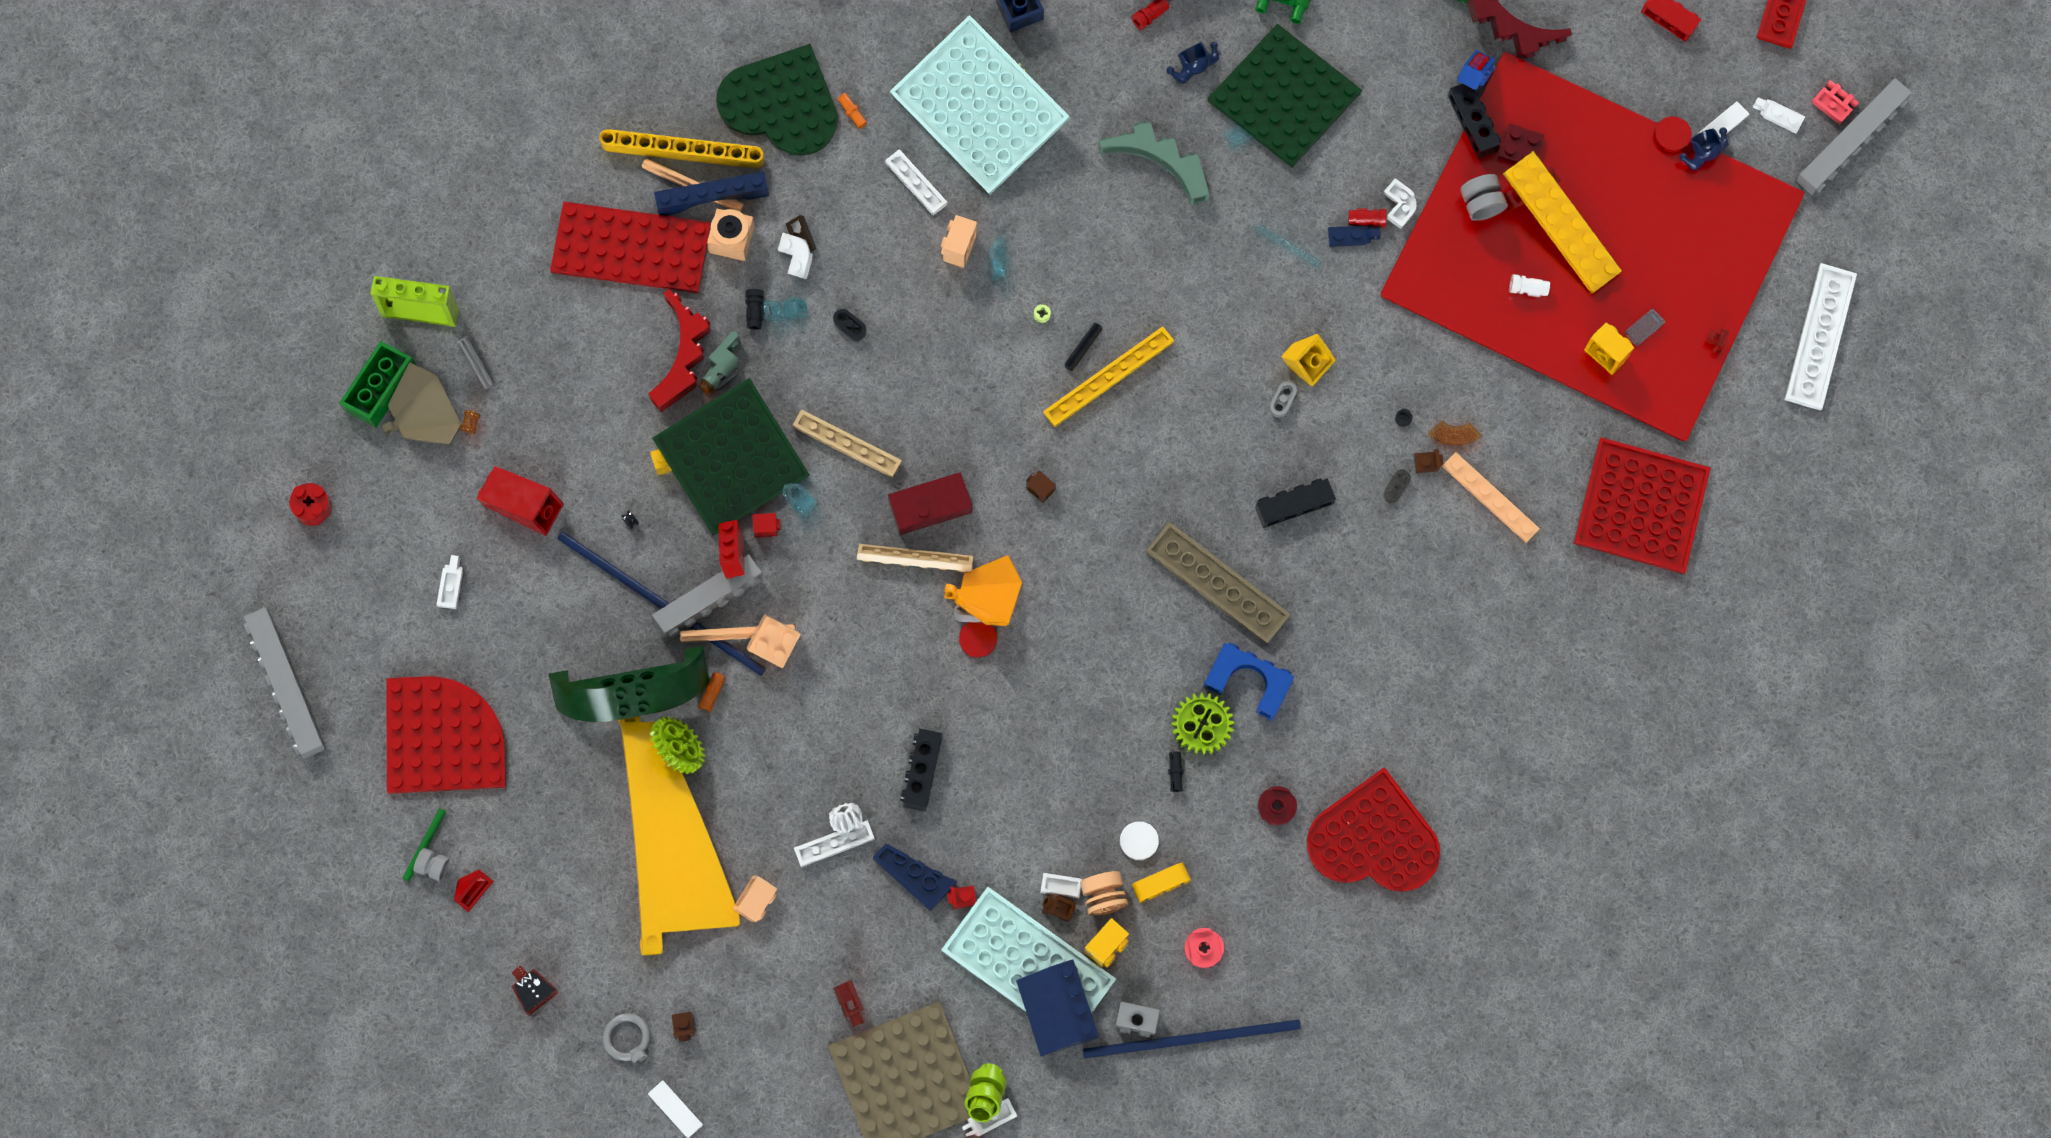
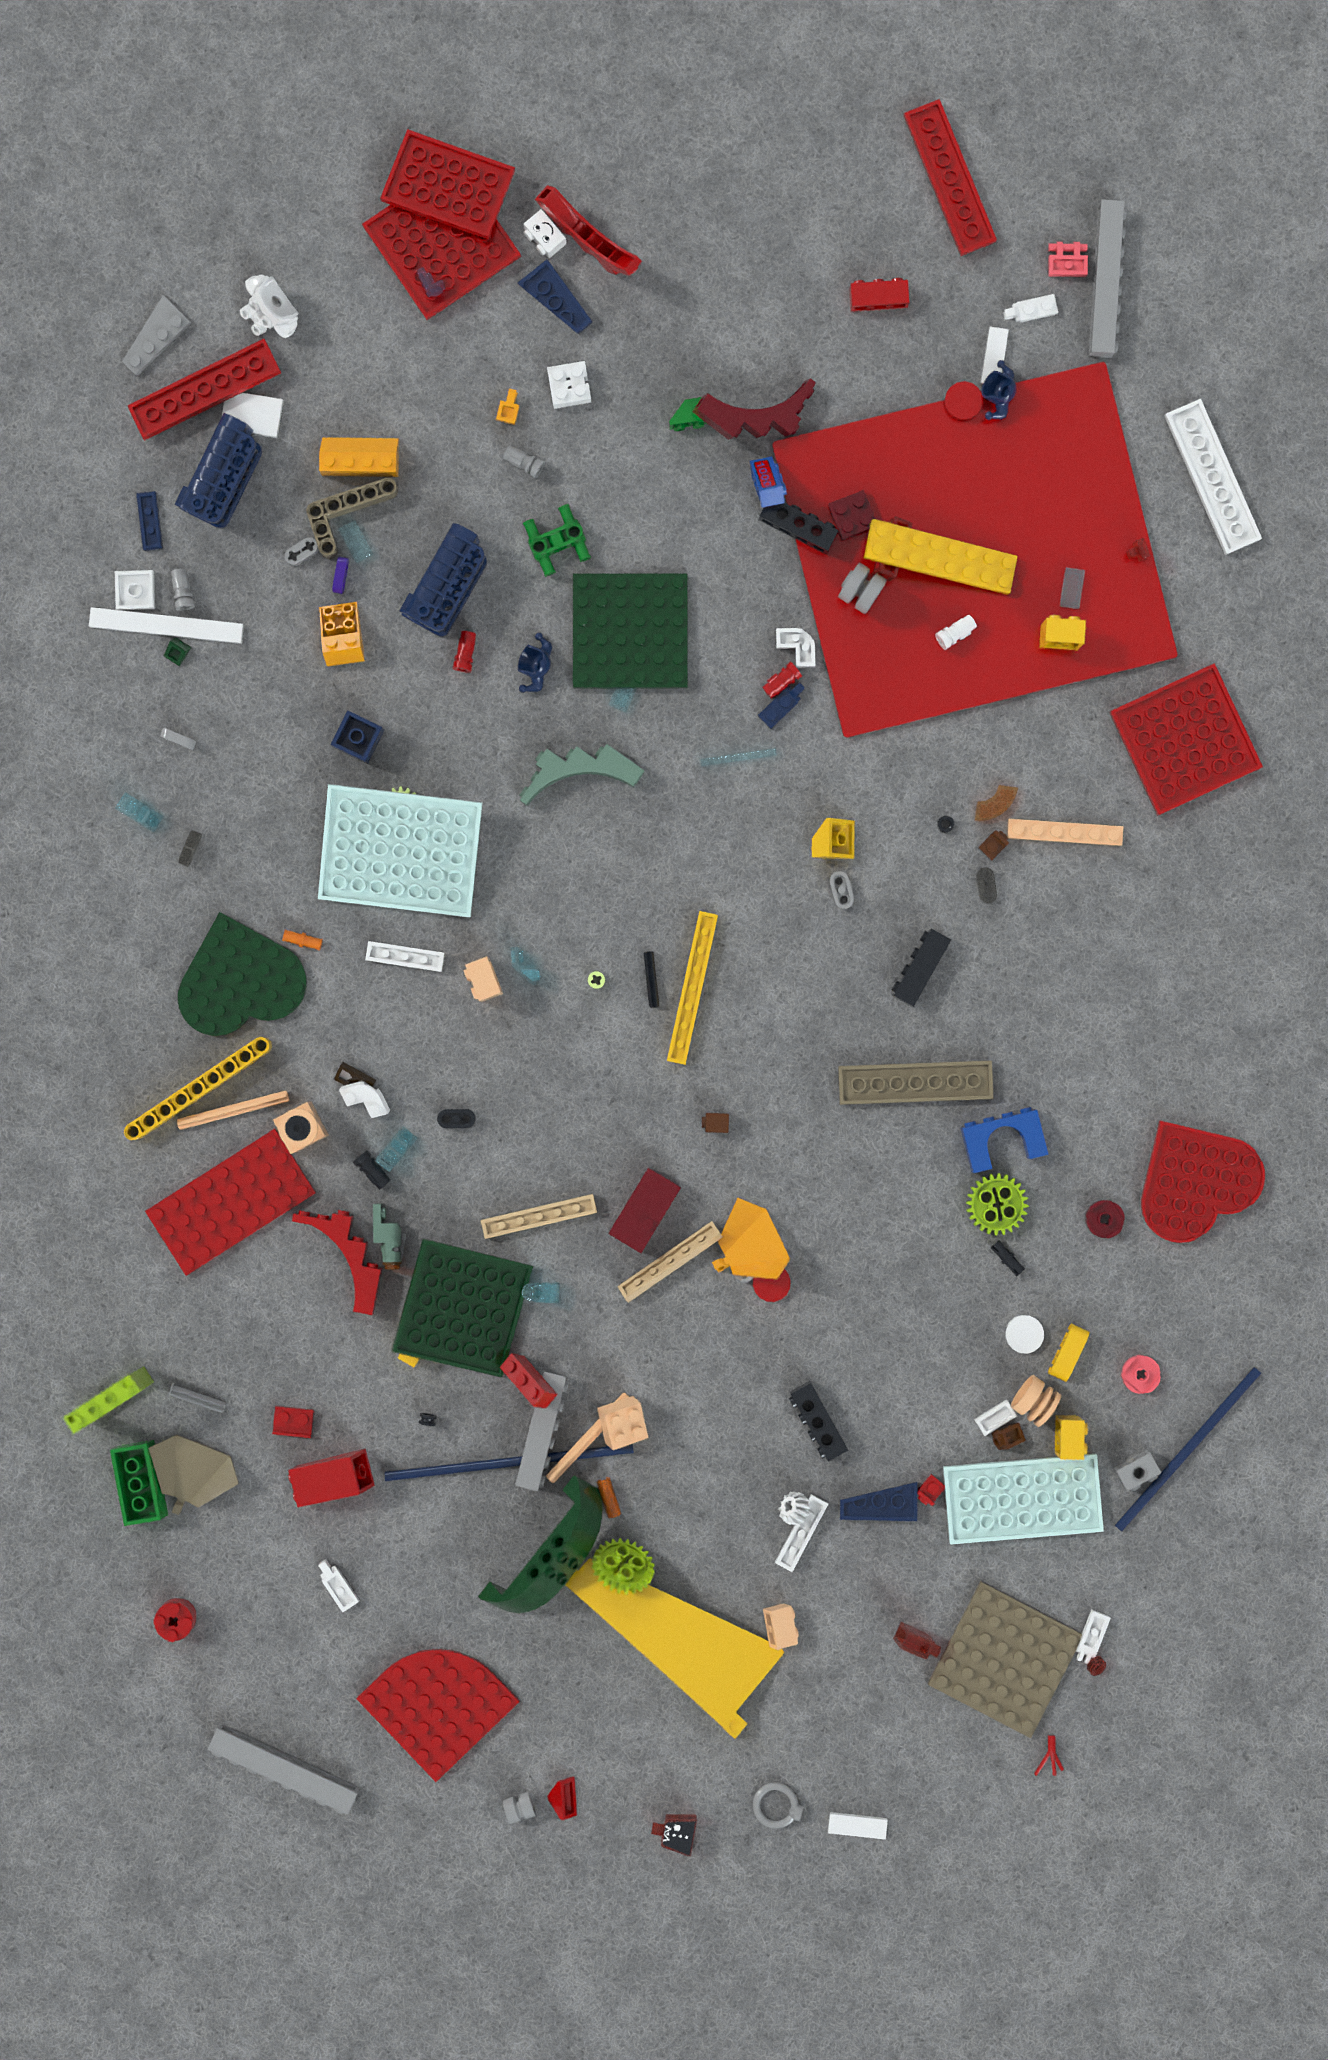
camera: 40 degrees left, 15 degrees up
(425, 842) = (498, 1793): green bar -> none
(465, 427) = (241, 1453): clear orange bush -> none
(529, 439) = (293, 1421): none -> red plate
(683, 1026) = (810, 1762): reddish brown bracket -> none
(739, 187) = (254, 1105): dark blue arch -> none
(765, 525) = (534, 1334): red brick -> none
(985, 1092) = (1079, 1631): lime piece -> none
(1057, 1008) = (1074, 1516): dark blue slope -> none

